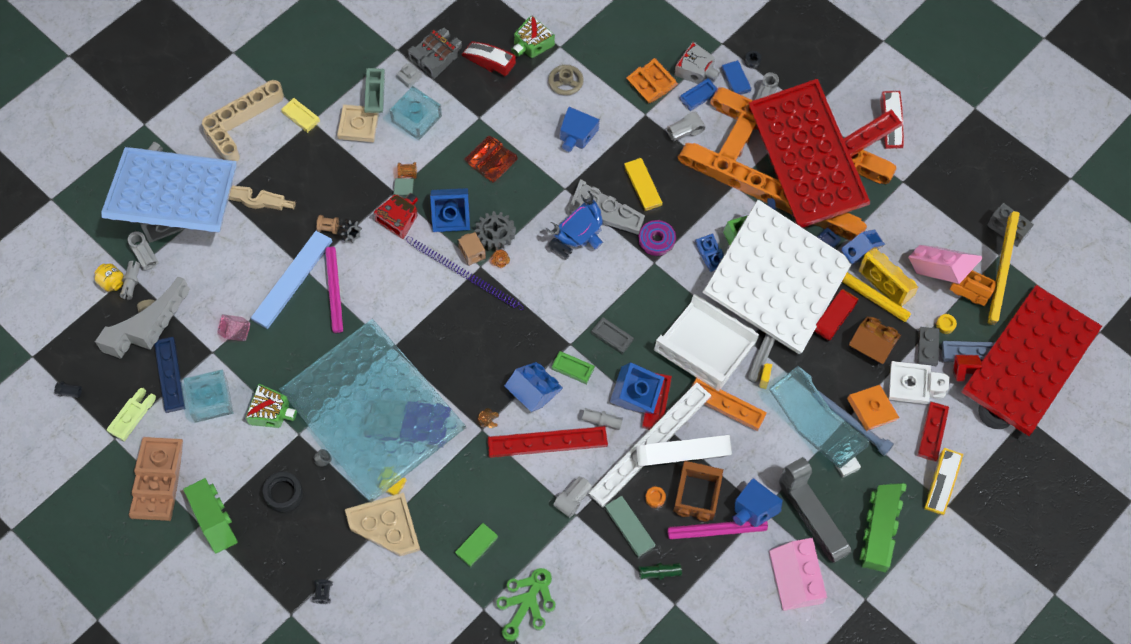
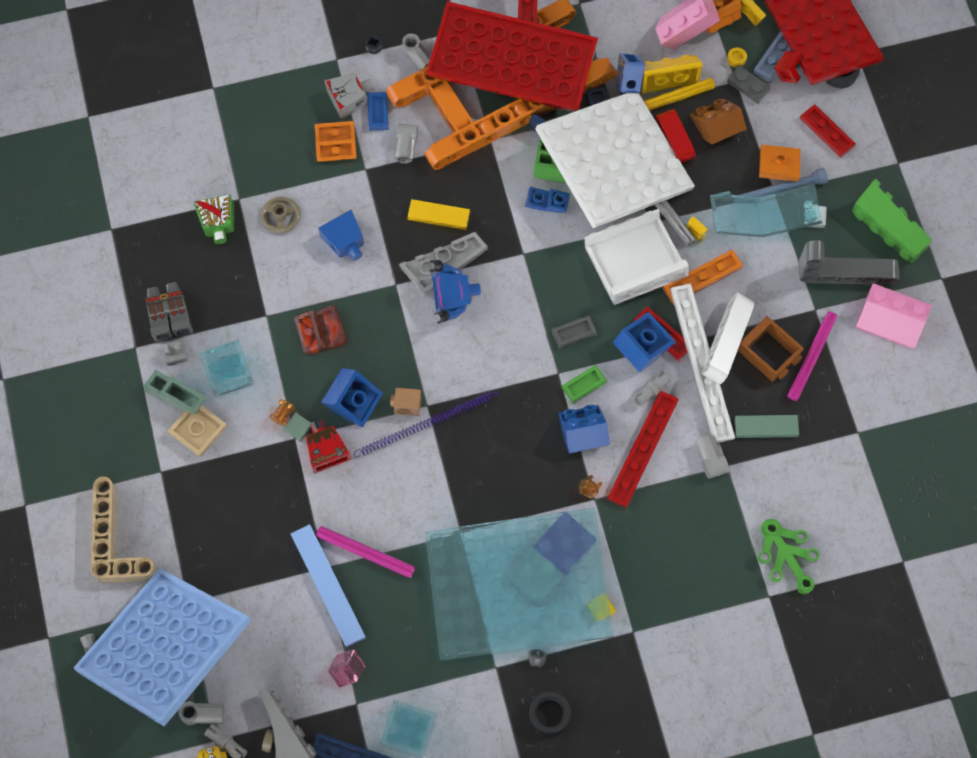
camera: 55 degrees left, 5 degrees up
(264, 199) = (220, 564): tan piece -> none
(269, 408) = (456, 679): torso -> none
(300, 115) = (147, 479): light yellow tile -> none
(322, 584) = (671, 729): black bush -> none
(333, 224) = (291, 519): medium nougat bush -> none
(349, 230) = (313, 501): black gear -> none
(386, 524) = (639, 636): tan plate -> none
(476, 544) = (705, 567): bright green tile -> none
(490, 57) = (209, 267): slope -> none
(500, 254) = (433, 377): clear orange plate -> none
(504, 230) = (395, 365): dark grey gear -> none
(559, 247) = (456, 324): black pin -> none
(655, 497) = (751, 389): orange tile -> none
(659, 228) = (504, 225): magenta tile -> none
(660, 571) = (823, 425): dark green pin -> none
(736, 77) = (383, 69): blue tile -> none
(756, 504) = (813, 310): blue torso -> none
(926, 386) = (784, 109): white plate -> none
(943, 481) = (878, 151): slope -> none

